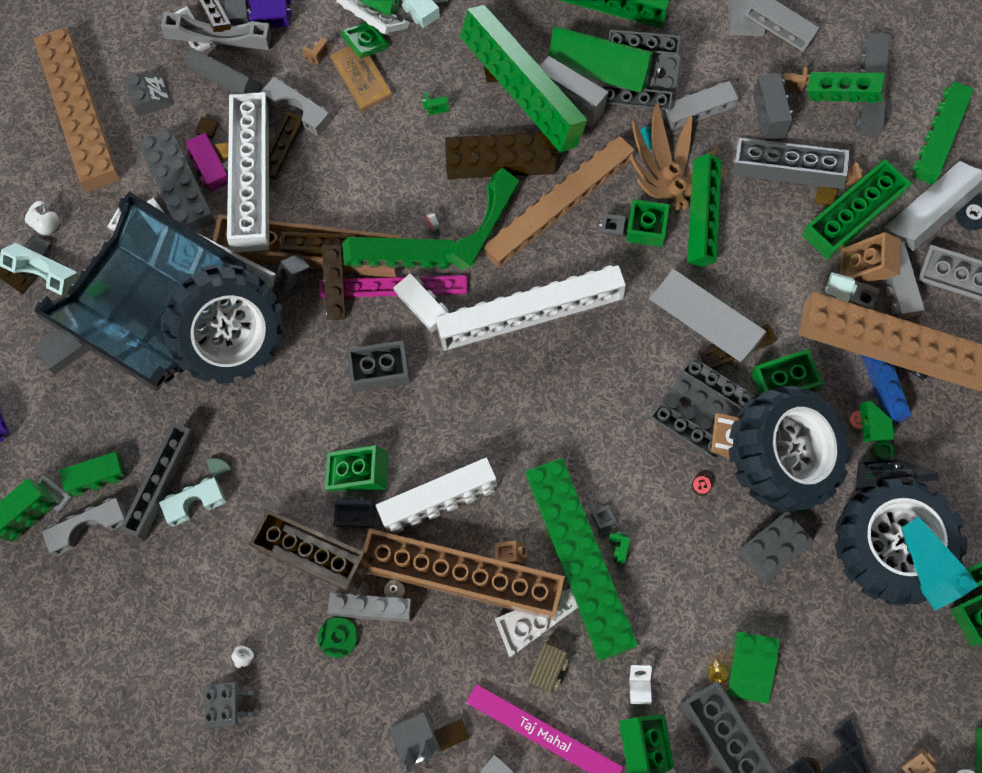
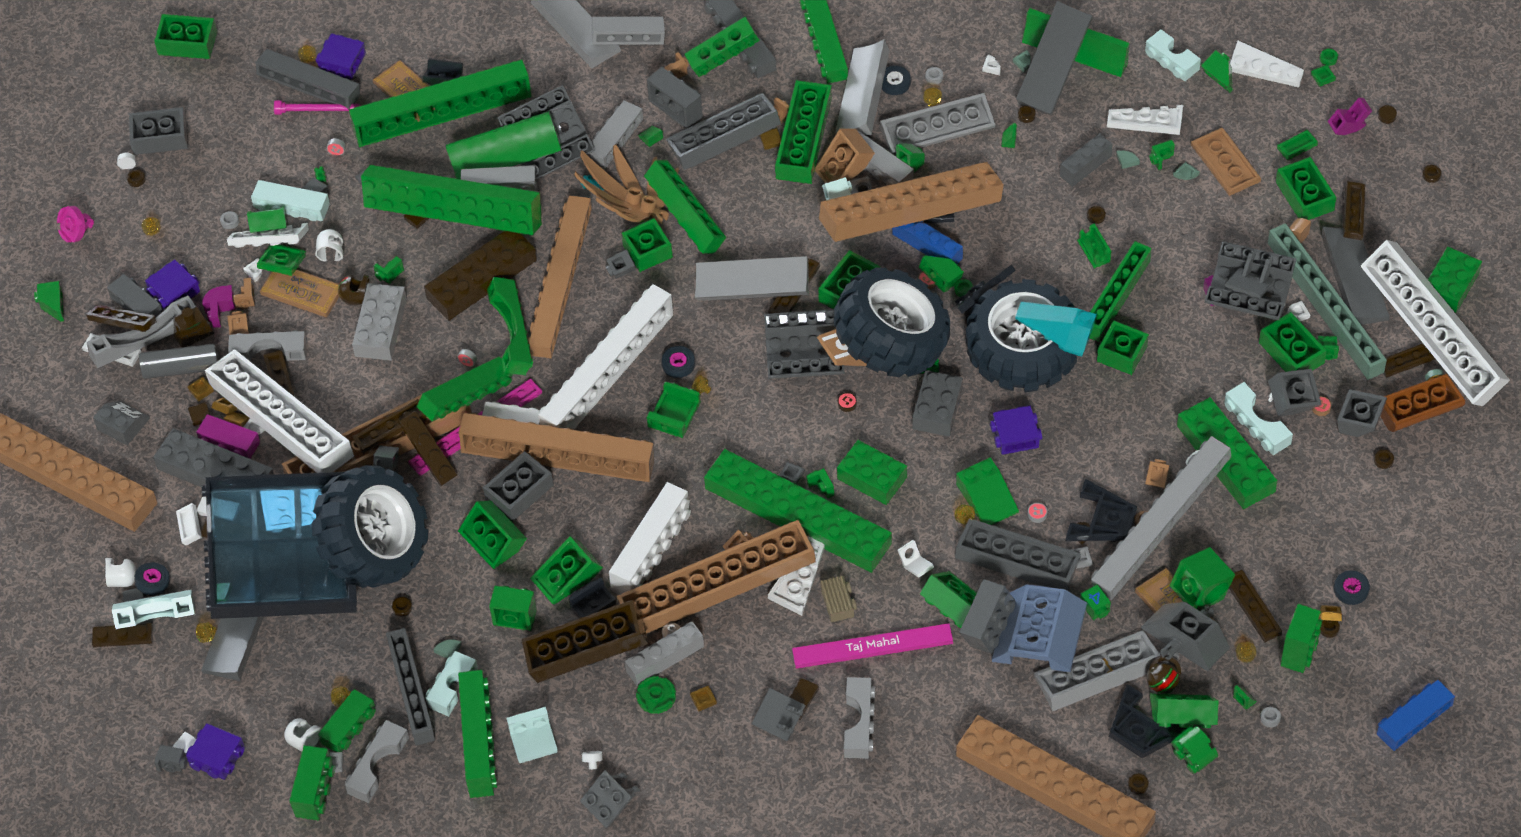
camera: 40 degrees left, 15 degrees down
(44, 457) = (301, 733): none -> white helmet
(59, 249) = (157, 584): none -> black bush
(107, 446) = (339, 695): none -> clear yellow tile
(168, 566) = (477, 733): none -> green brick
(213, 600) = (531, 735): none -> light aqua bracket
(215, 403) = (402, 606): none -> dark brown tile
(222, 107) = (200, 389): none -> pearl gold tile
(223, 133) = (224, 406): none -> pearl gold tile
(255, 51) = (190, 327): none -> dark brown torso
(286, 473) = (513, 607): none -> green brick
(290, 42) = (216, 301): none -> magenta brick
(290, 72) = (238, 323): none -> medium nougat bracket
(328, 391) = (491, 533): none -> green slope
(337, 35) = (252, 270): none -> white tile
(371, 671) = (703, 698): none -> pearl gold tile
(392, 143) = (379, 321): none -> light grey brick
(394, 104) = (352, 290): none -> dark brown helmet
(406, 45) = (331, 239): none -> white helmet
(432, 355) = (557, 447): none -> medium nougat brick
(555, 387) = (674, 410): none -> green panel
(589, 354) = (680, 369): none -> black bush
(592, 381) = (700, 385): none -> clear yellow tile
(669, 570) = (872, 472): none -> green brick
(729, 126) = (651, 136): none -> green slope
(783, 718) = (1037, 512): none -> tile
(824, 625) = (1015, 430): none -> dark purple brick
(932, 295) = (910, 155): none -> green slope

